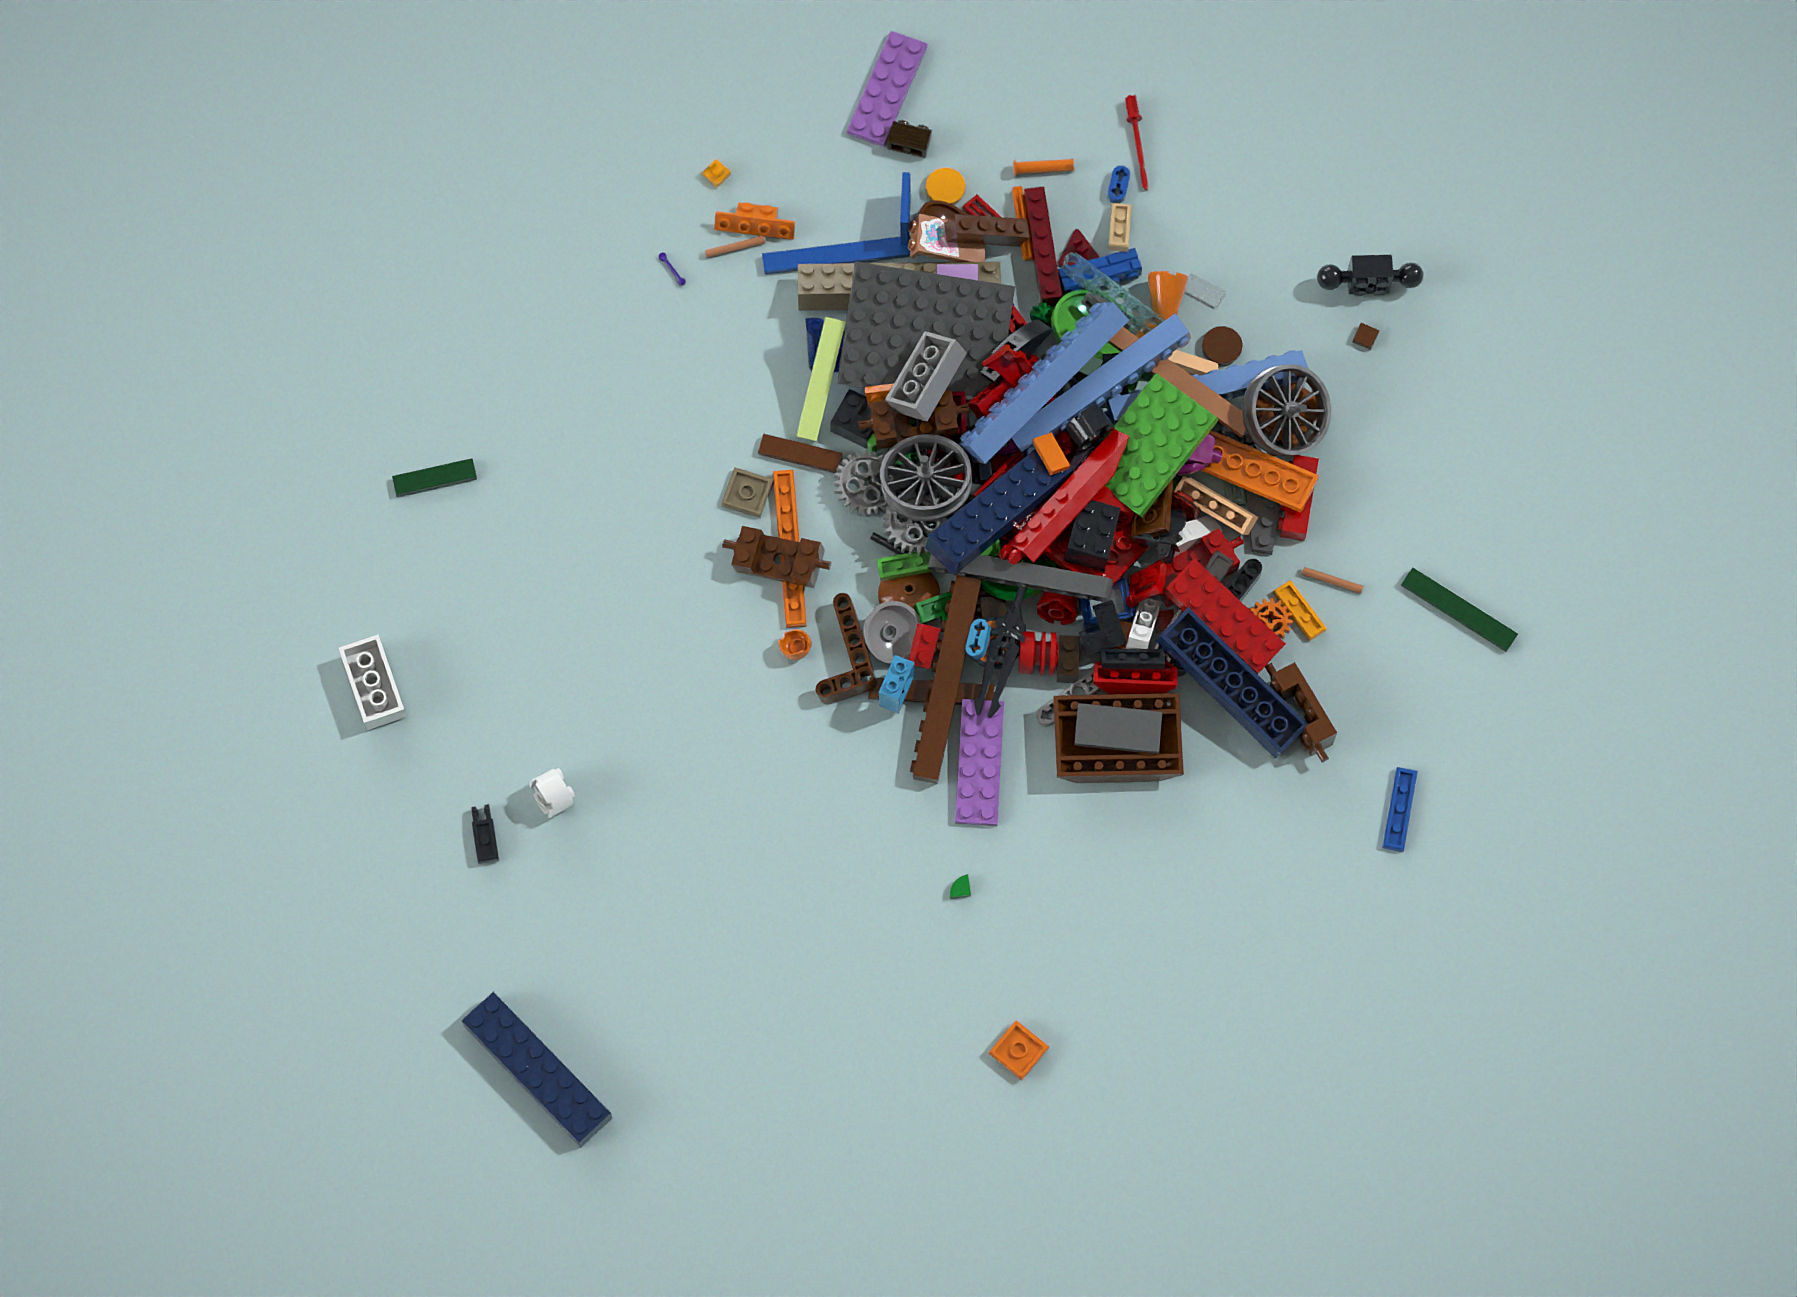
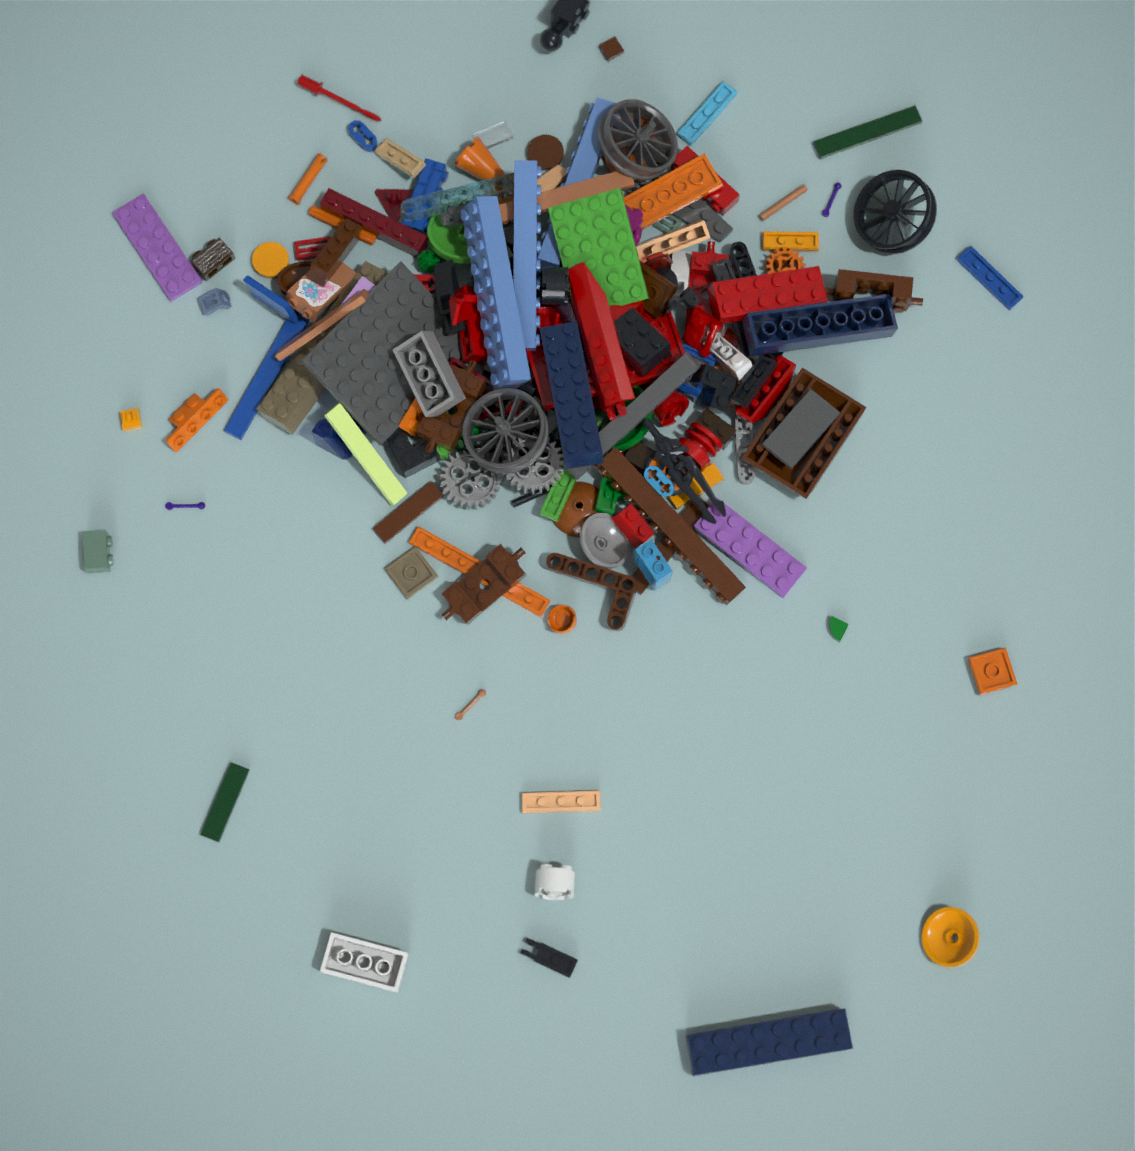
camera: 55 degrees left, 5 degrees up
(578, 225) = (97, 551): none -> sand green brick
(631, 753) = (561, 801): none -> light nougat tile
(647, 618) = (459, 716): none -> nougat hinge
(735, 246) = (202, 446): nougat bar -> none
(741, 1166) = (939, 934): none -> light orange dish
(873, 166) = (214, 301): none -> sand blue bracket
(909, 262) = (322, 324): none -> nougat tile
(1016, 684) = (712, 477): none -> light orange tile
(1051, 453) = (555, 327): orange tile -> none
(1352, 623) = (826, 212): none -> dark purple hinge
(1367, 458) = (707, 113): none -> medium azure tile
(1392, 678) = (895, 211): none -> black wheel

